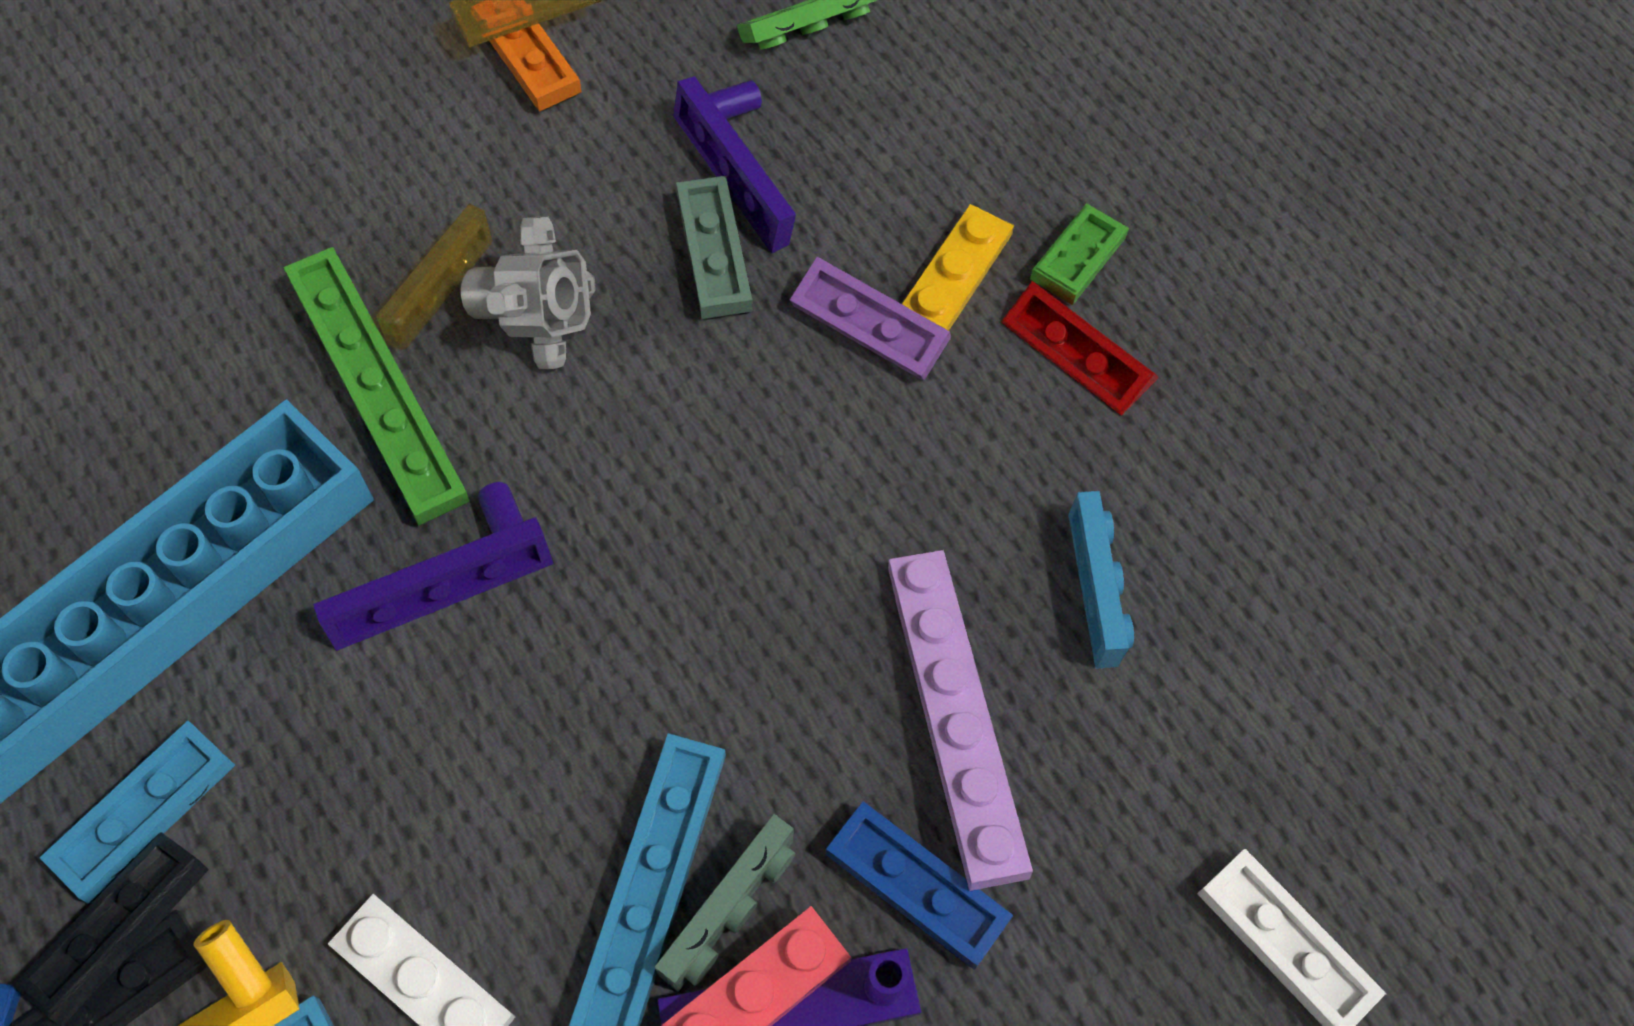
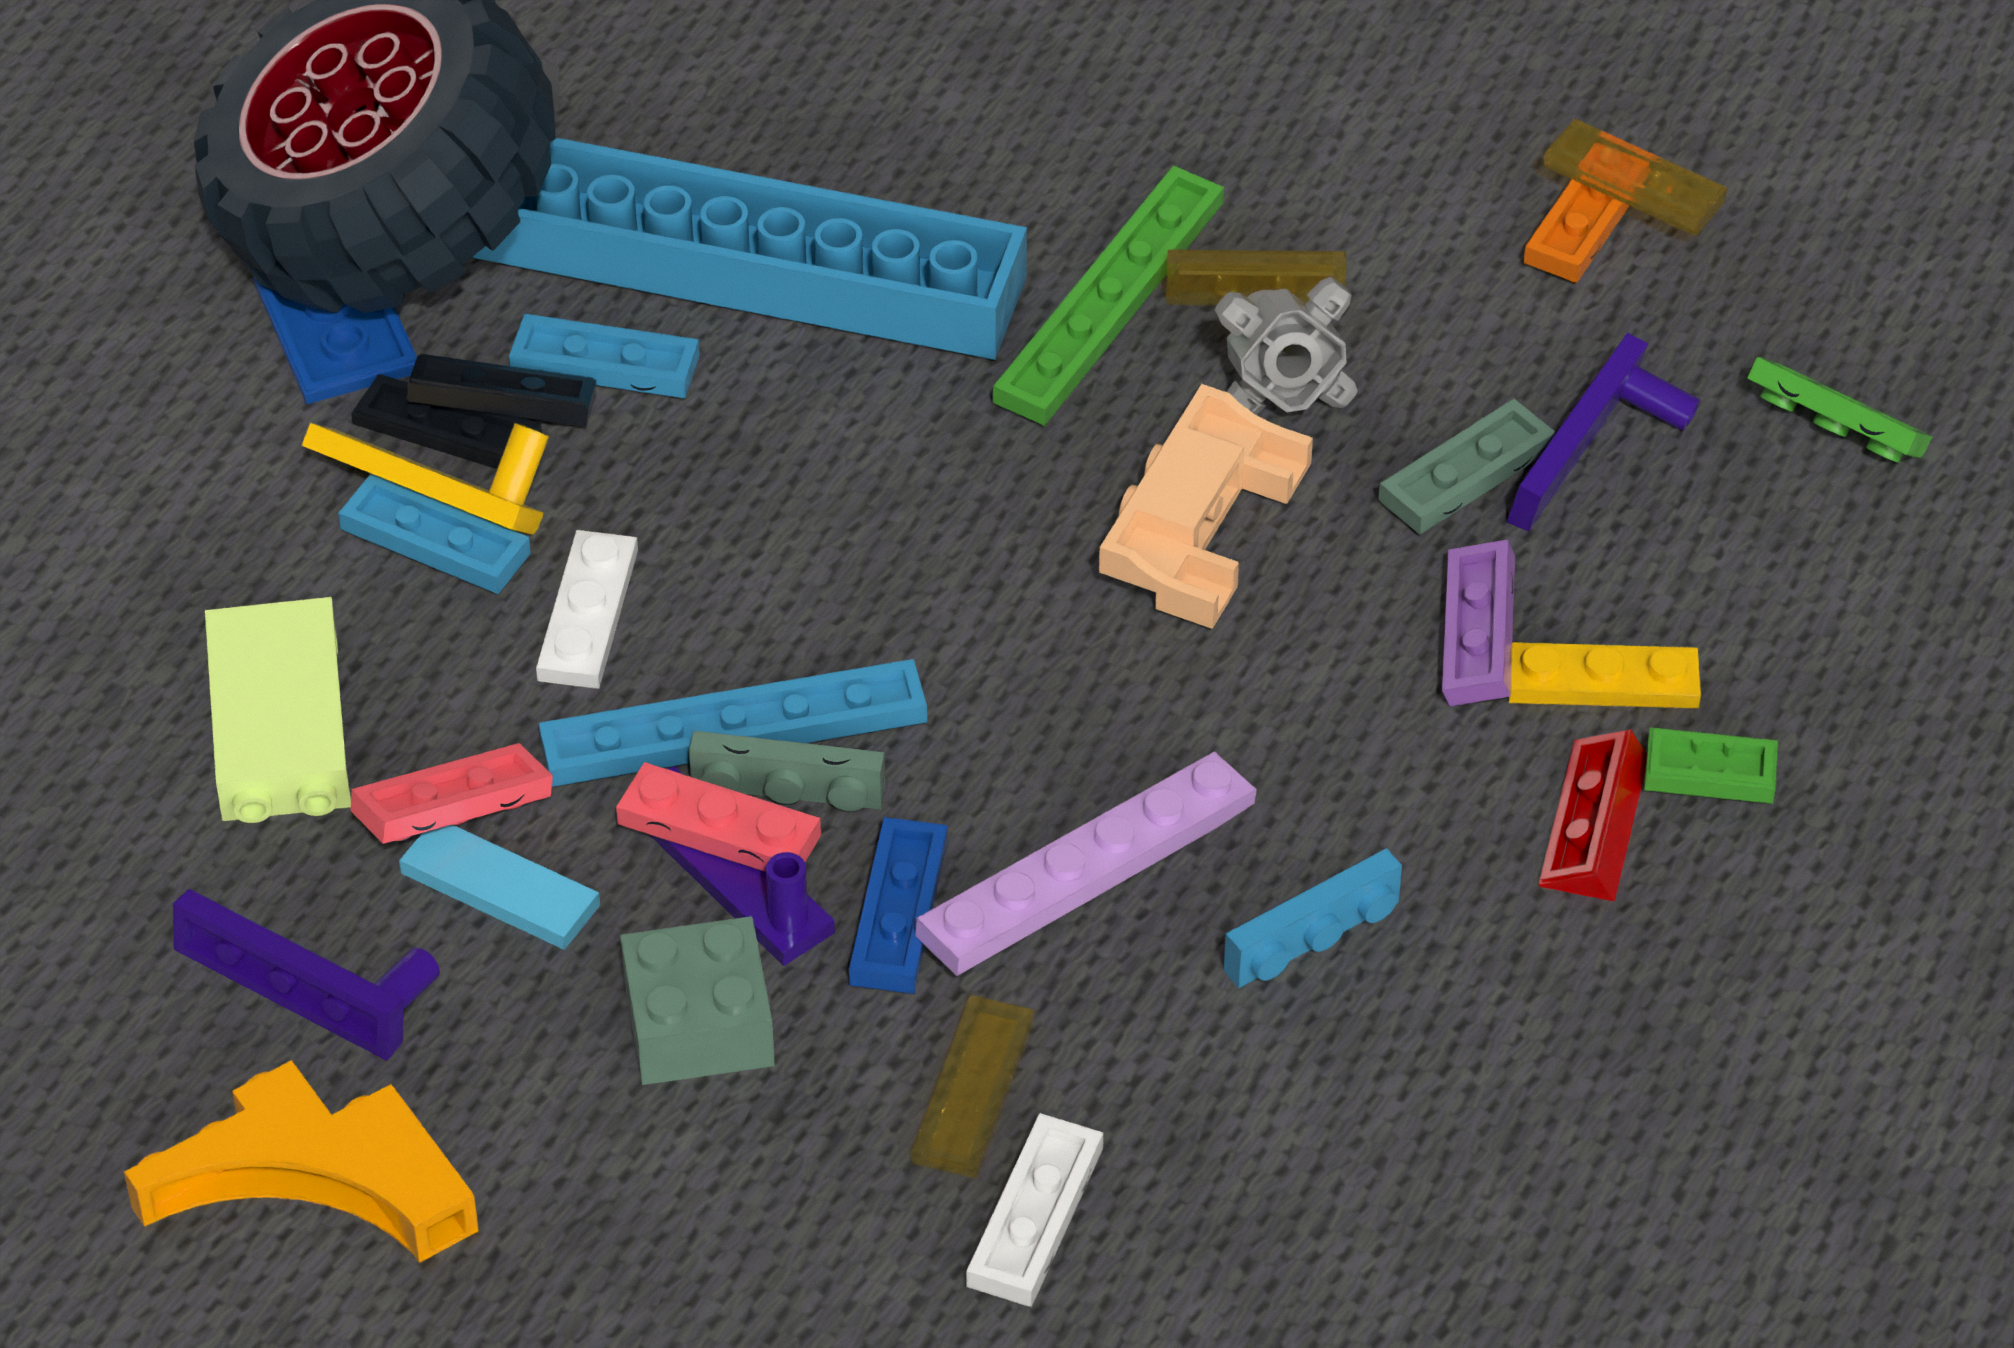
camera: 65 degrees right, 15 degrees down
(443, 580) = (951, 439): dark purple piece -> none
(633, 444) = (1187, 495): none -> light nougat bracket
(1133, 925) = (973, 1086): none -> clear yellow tile

